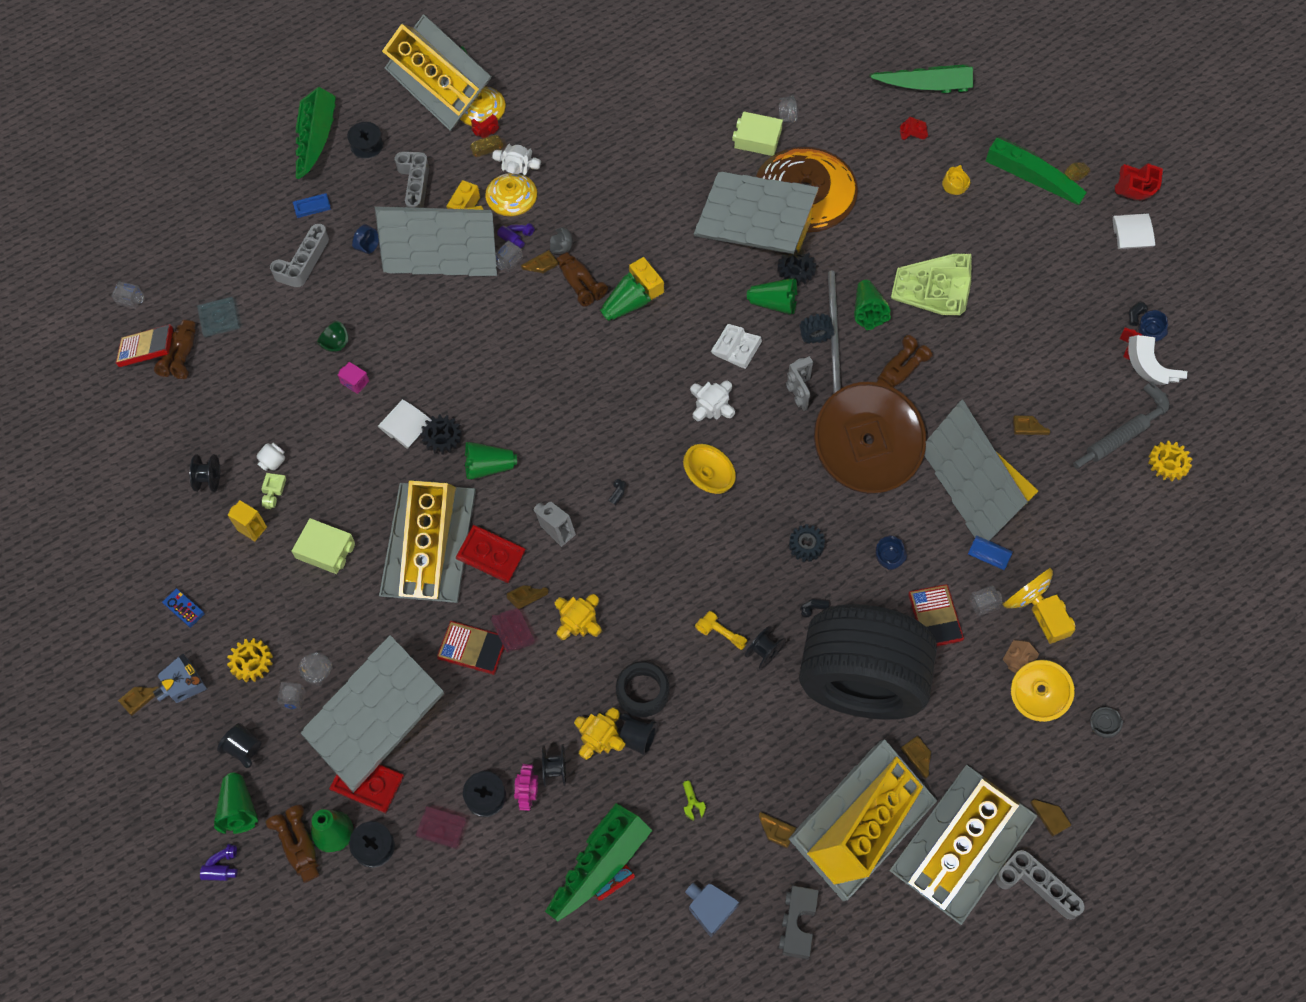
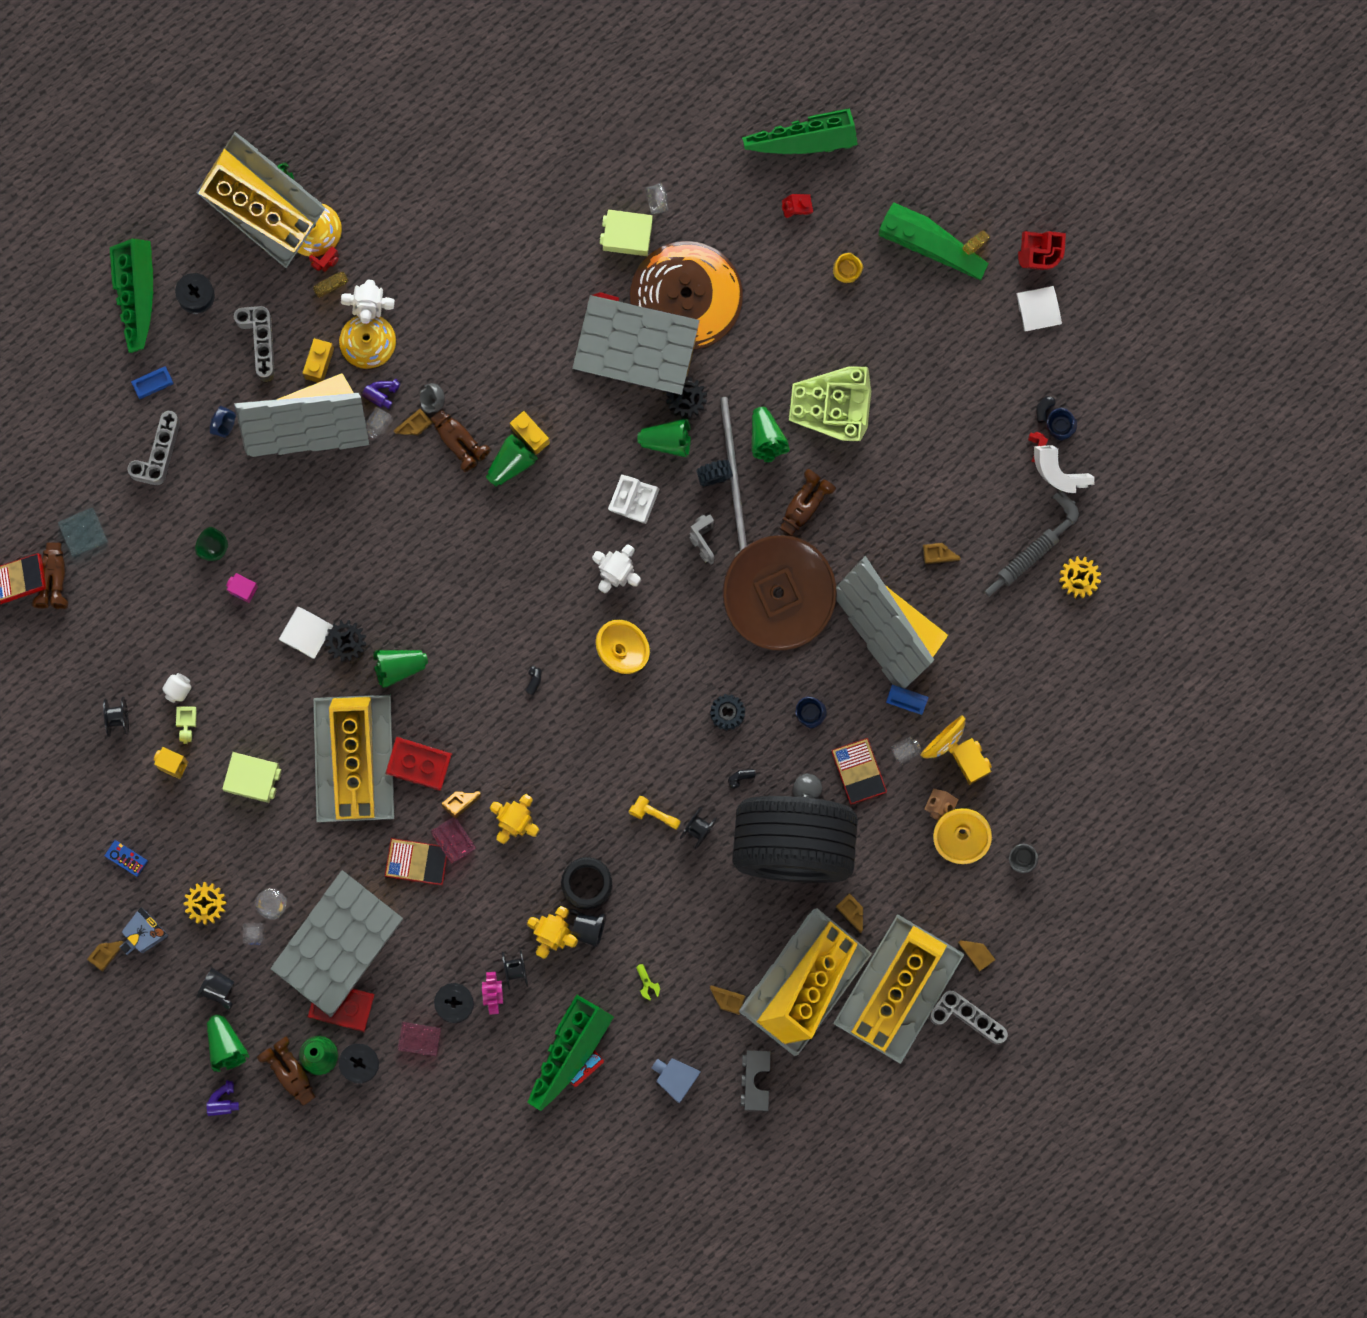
camera: 10 degrees left, 15 degrees up
(555, 522) = (476, 723): light grey torso -> none

